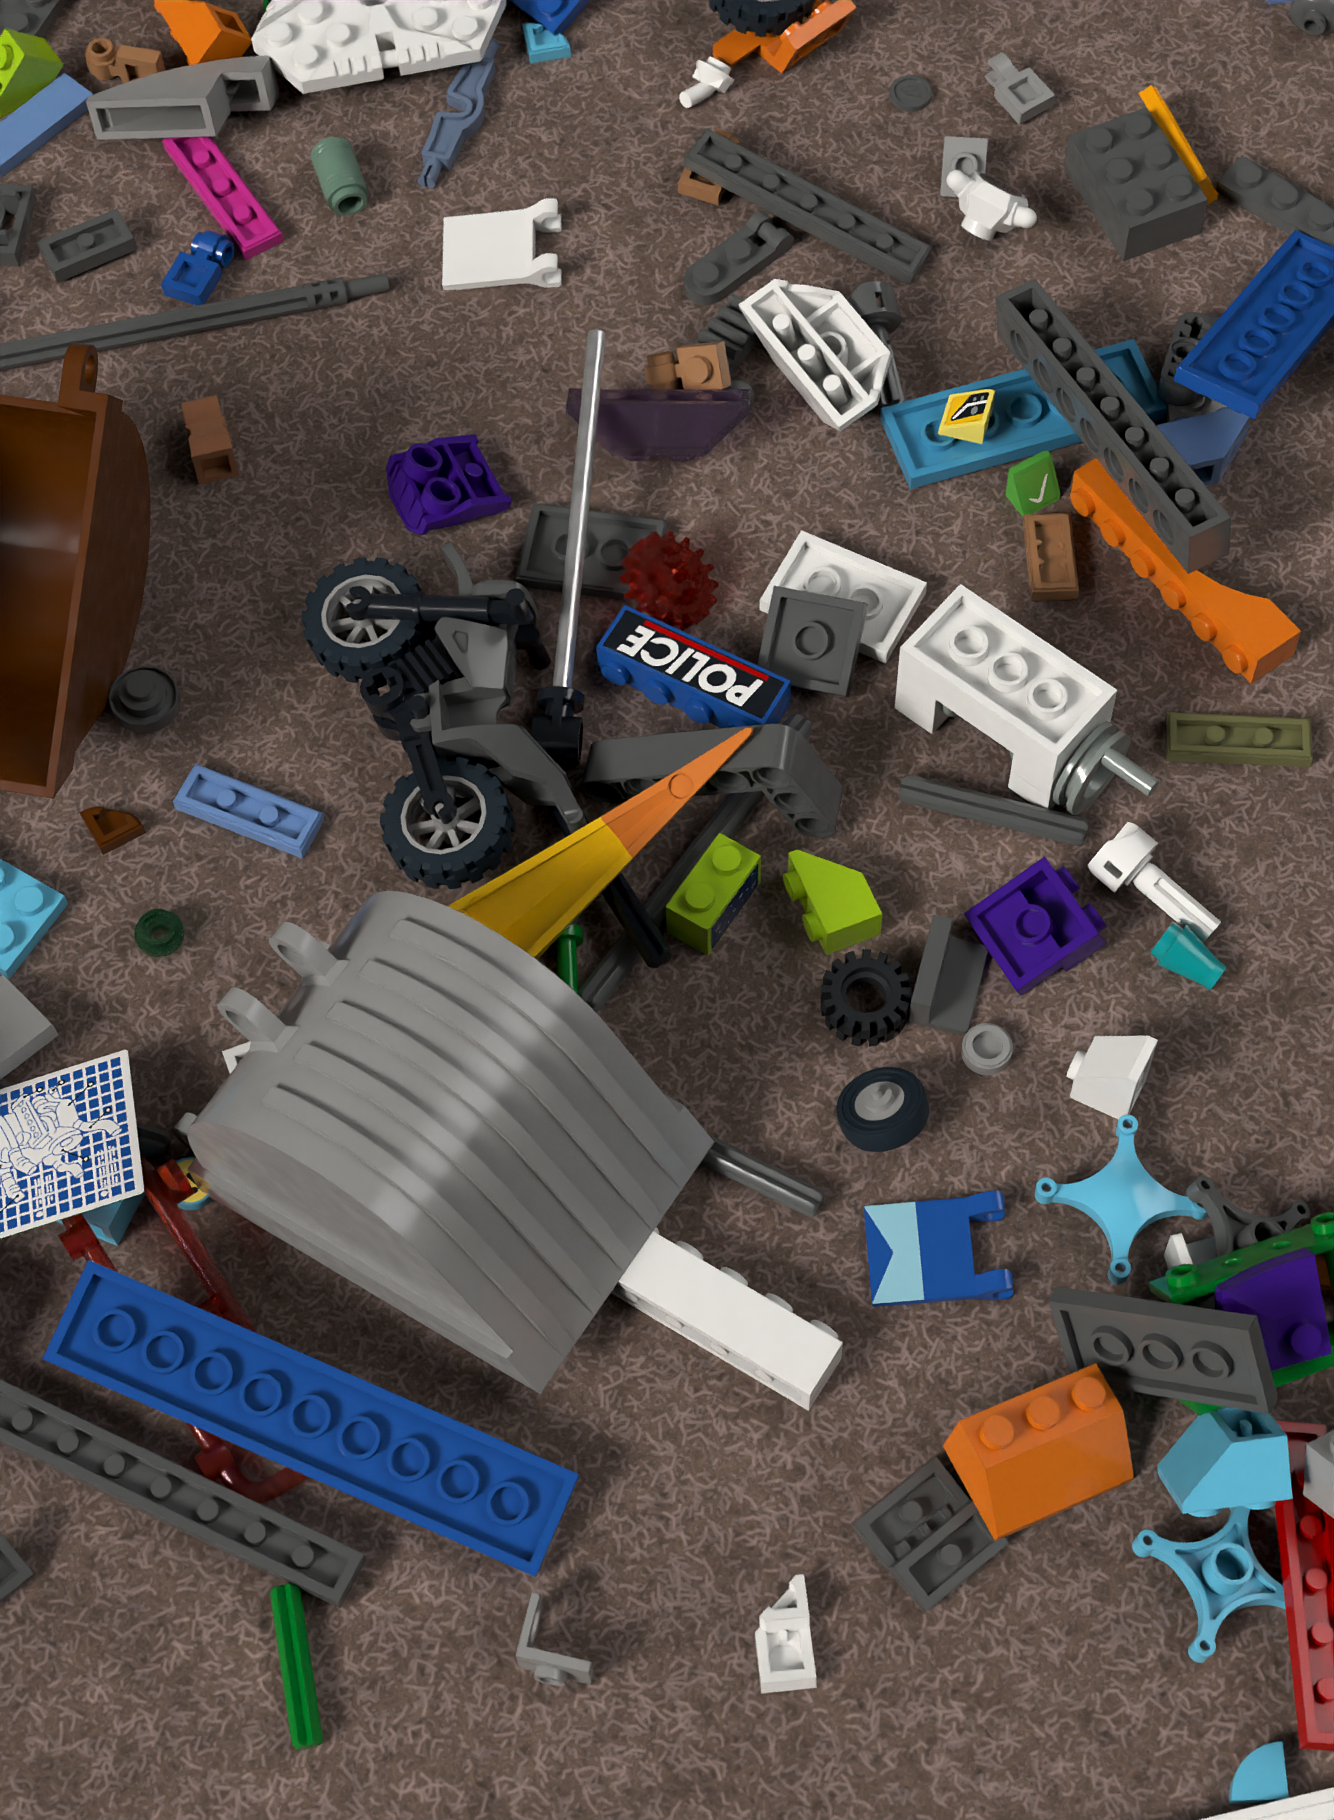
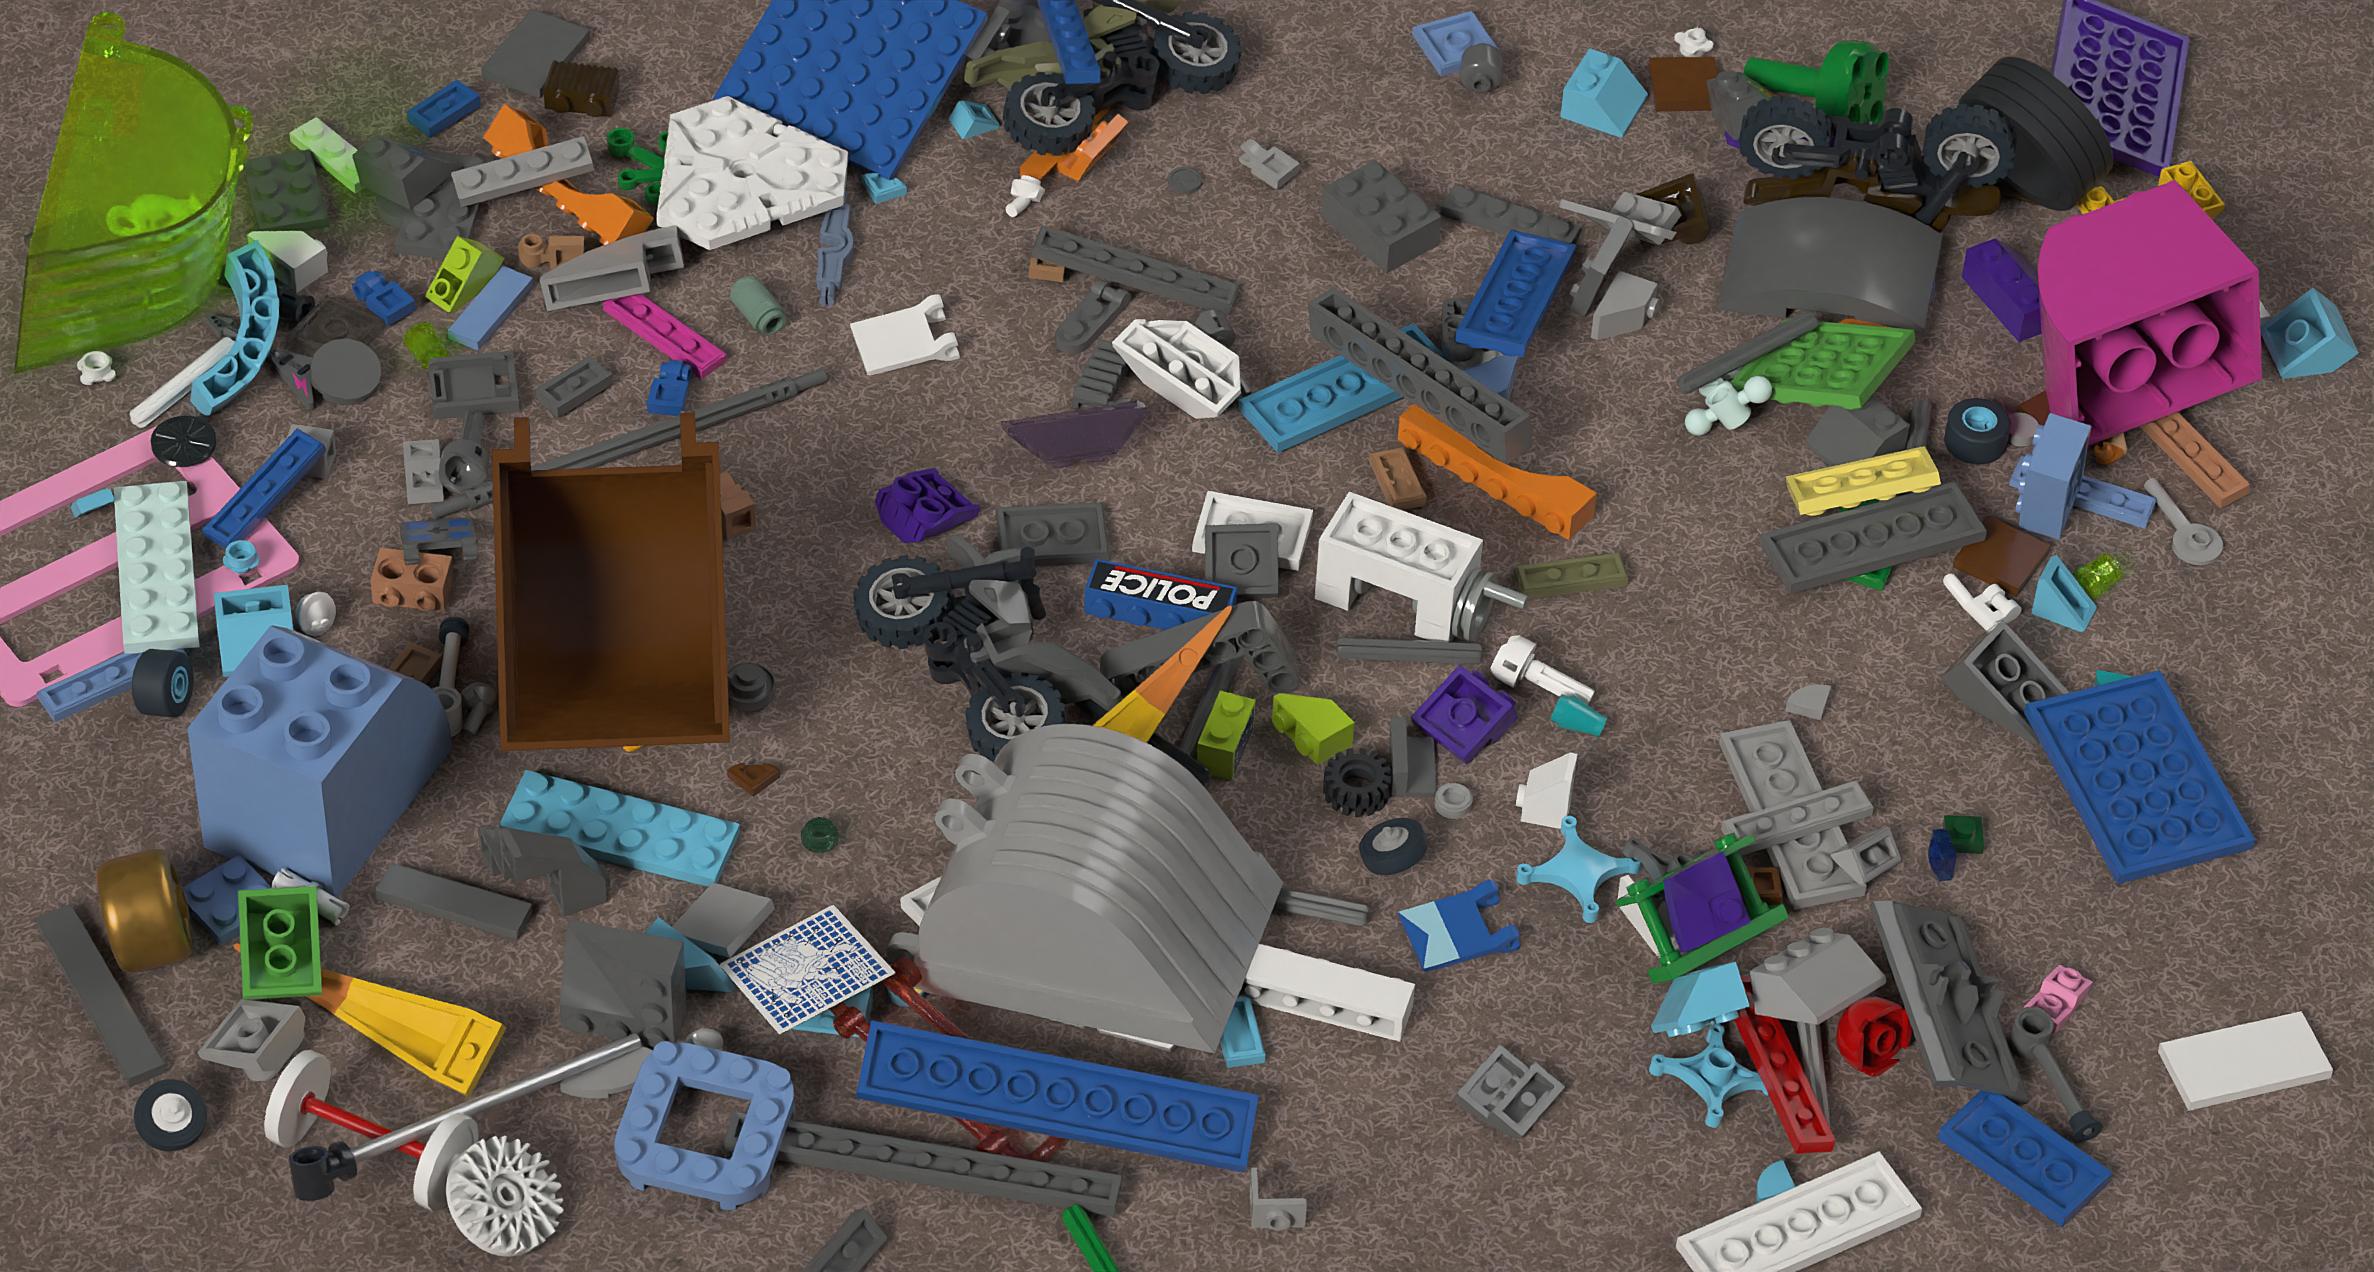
camera: 20 degrees left, 15 degrees down
(249, 811) = (855, 747): medium blue tile -> none
(558, 730) = (1067, 630): flat silver piece -> none
(597, 1356) = (1241, 1036): none -> medium azure tile
(669, 580) = (1121, 537): clear red gear -> none
(699, 365) = (1092, 391): medium nougat plate -> none
(786, 1643) = (1431, 1175): white slope -> none
(964, 155) = (1245, 224): light grey bracket -> none
(968, 415) = (1308, 392): slope -> none
(989, 204) = (1276, 246): white rock -> none
(1033, 484) = (1369, 432): bright green slope -> none
(1042, 1451) = (1571, 1022): orange slope -> none
(1166, 1348) = (1637, 935): dark grey plate -> none
(1174, 134) = (1374, 152): light orange tile -> none

